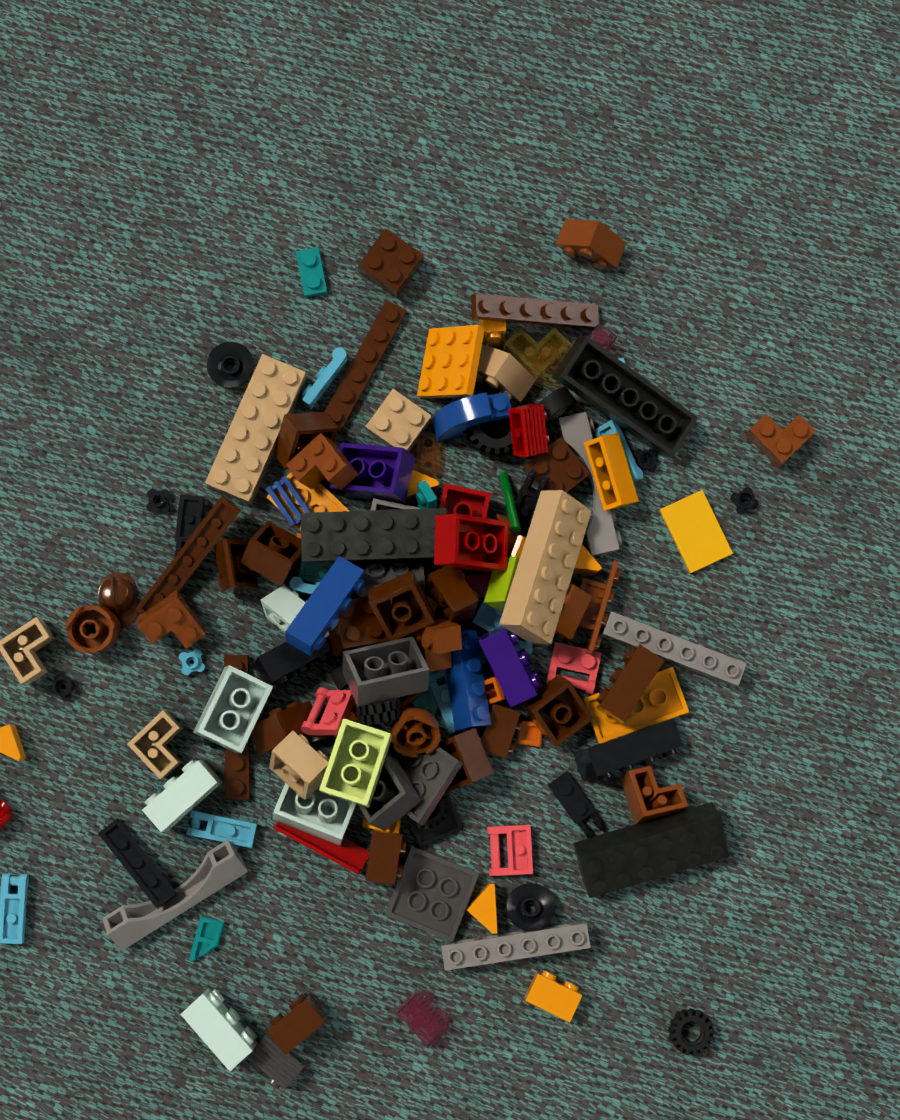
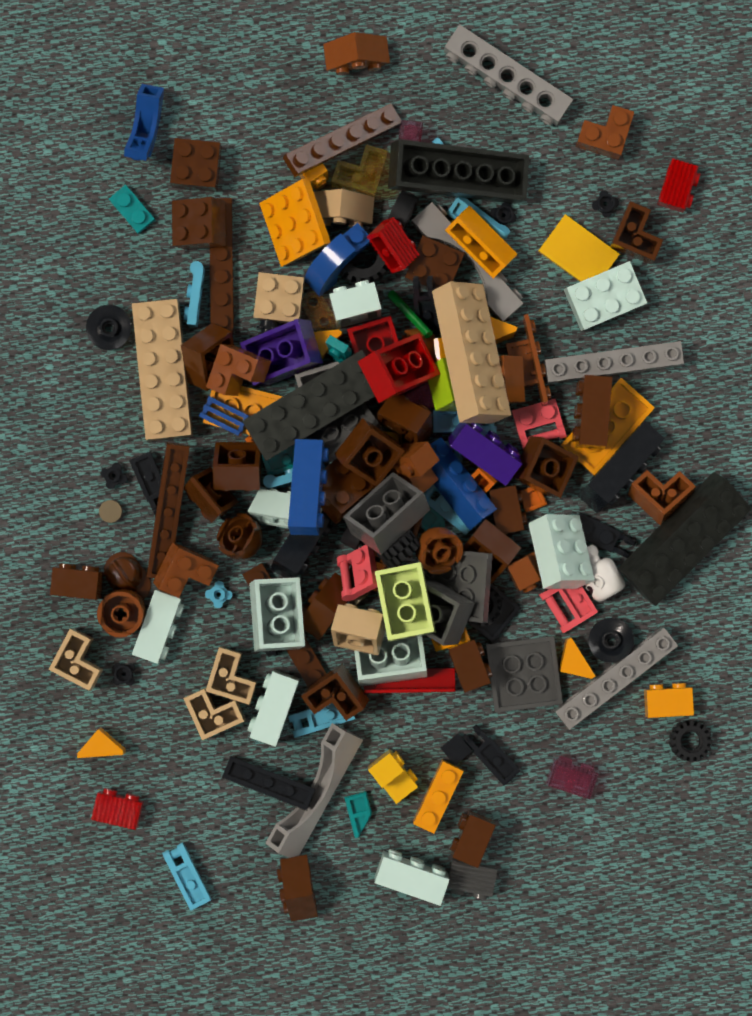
camera: 25 degrees left, 5 degrees up
(64, 576) = (77, 583): none -> reddish brown brick
(106, 980) = (297, 890): none -> reddish brown brick
(116, 769) = (210, 719): none -> tan brick
(119, 661) = (158, 627): none -> light aqua brick
(137, 531) = (110, 511): none -> dark tan tile
(240, 620) = (240, 537): none -> reddish brown cylinder
(250, 810) = (336, 688): none -> reddish brown brick
(256, 922) = (393, 776): none -> yellow brick
(287, 964) = (438, 796): none -> light orange brick
(330, 929) = (456, 749): none -> black tile
(360, 956) = (493, 757): none -> black hinge
(363, 315) = (198, 223): none -> reddish brown brick
(367, 202) = (146, 123): none -> blue arch
(373, 440) = (266, 325): none -> black plate
(463, 464) = (355, 304): none -> light aqua brick
(493, 799) = (524, 572): none -> dark orange brick
(529, 797) = (561, 551): none -> light aqua brick
(553, 841) = (606, 575): none -> white piece
(564, 1055) = (703, 745): none -> black tyre
(695, 283) = (503, 64): none -> light grey brick
(698, 584) = (605, 296): none -> light aqua brick
(751, 545) = (632, 239): none -> reddish brown brick
(820, 521) = (678, 185): none -> red brick

